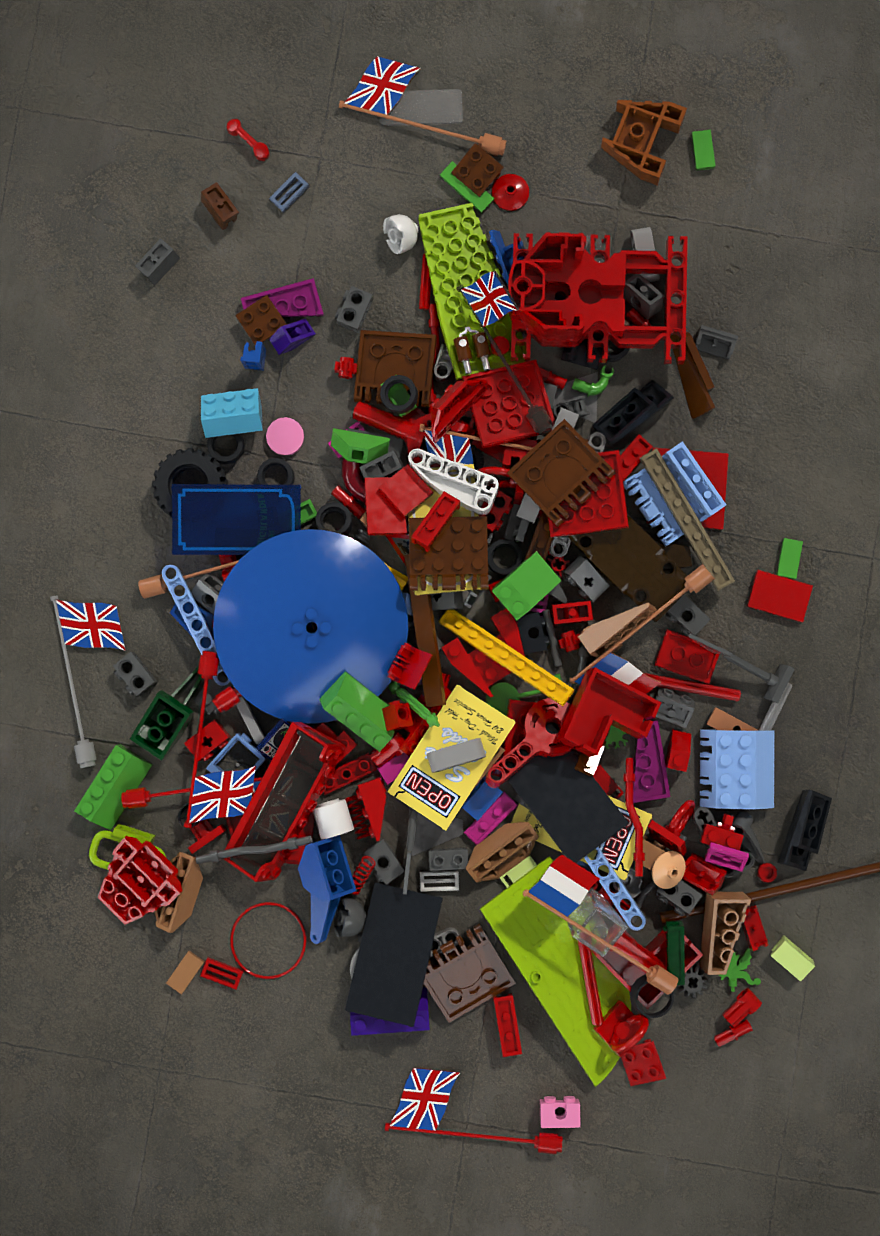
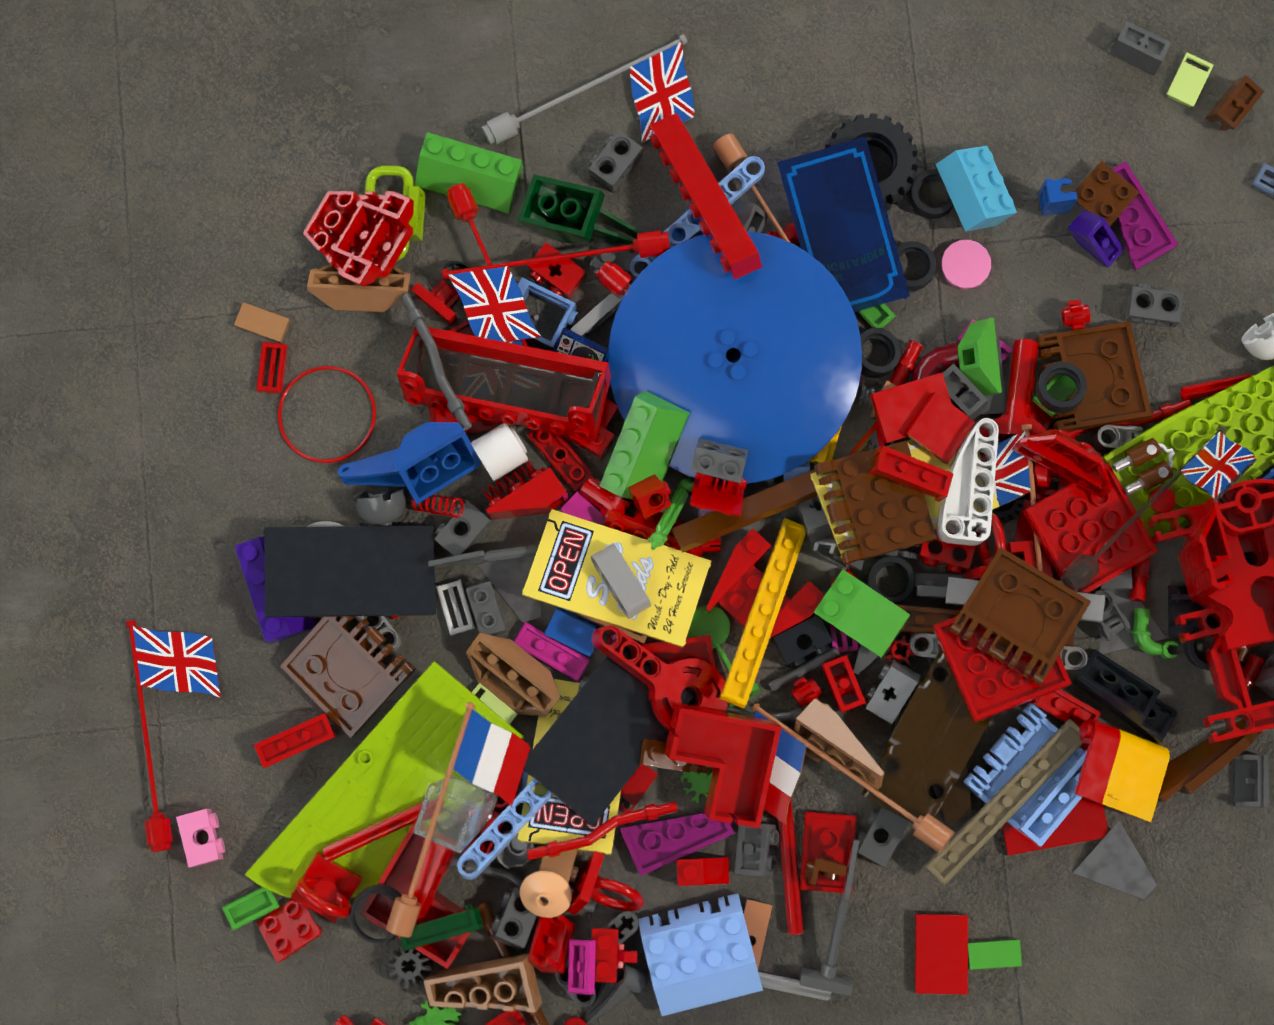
camera: 80 degrees right, 5 degrees down
(183, 615) = (705, 197): none -> red brick
(192, 234) = (1189, 81): none -> yellowish green piece
(386, 658) = (719, 460): none -> dark grey brick
(619, 1088) = (250, 907): none -> bright green tile
(685, 431) = (1121, 769): none -> yellow door
(700, 660) = (828, 869): none -> reddish brown bracket
(749, 453) = (1118, 865): none -> flat silver sticker

